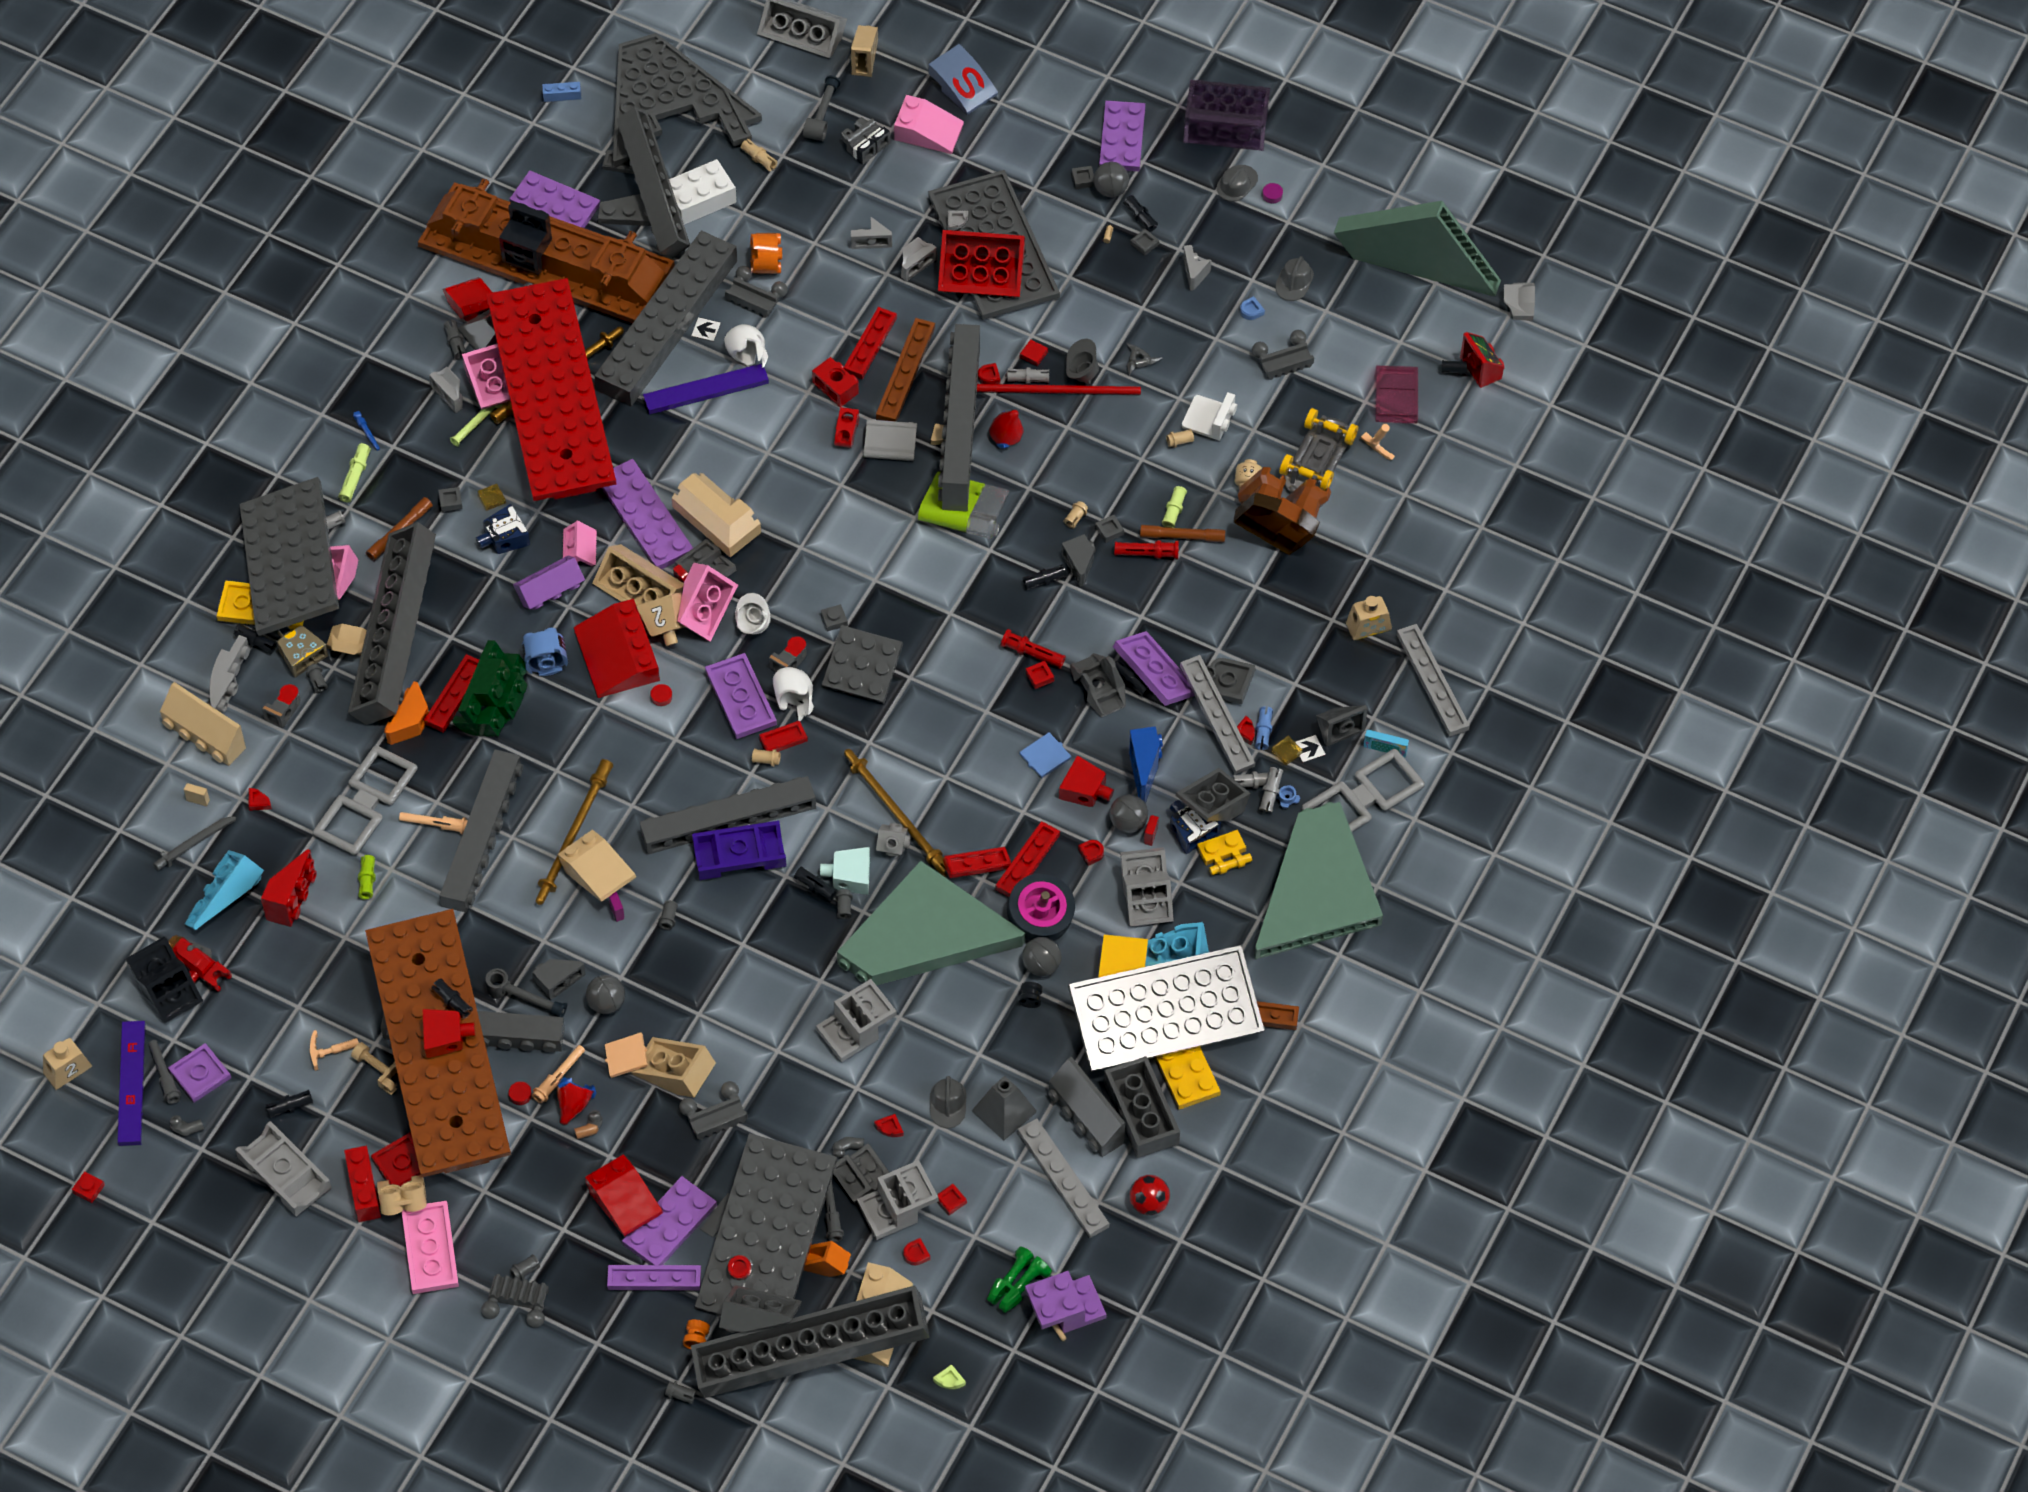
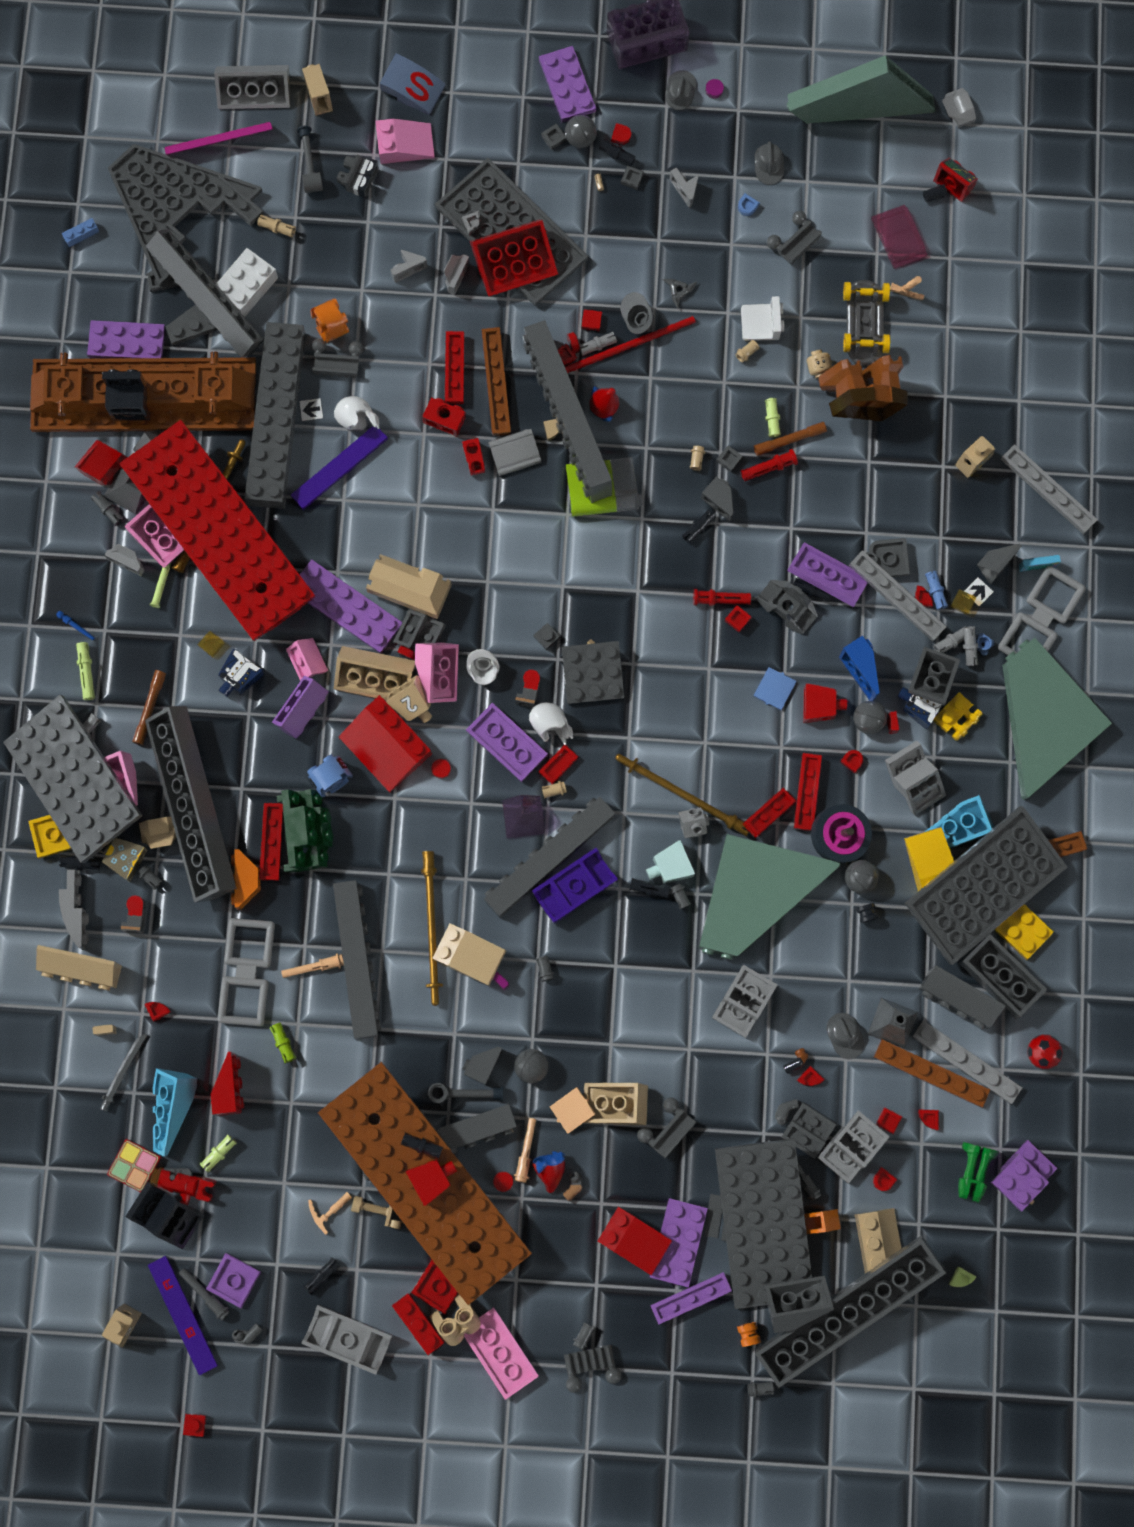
camera: 25 degrees left, 20 degrees up
(157, 923) = (133, 1165): none -> tile
(247, 950) = (218, 1153): none -> yellowish green pin
(450, 499) = (178, 662): dark grey plate -> none
(722, 769) = (523, 816): none -> clear purple slope
(739, 1267) = (759, 1265): red tile -> none
(742, 58) = (218, 138): none -> dark pink tile
(885, 1104) = (802, 1056): none -> black arm
(996, 1214) = (929, 1118): none -> red tile
(1003, 365) = (573, 342): none -> red tile
(1020, 1173) = (931, 1073): none -> dark orange plate
(1153, 199) = (621, 134): none -> red tile

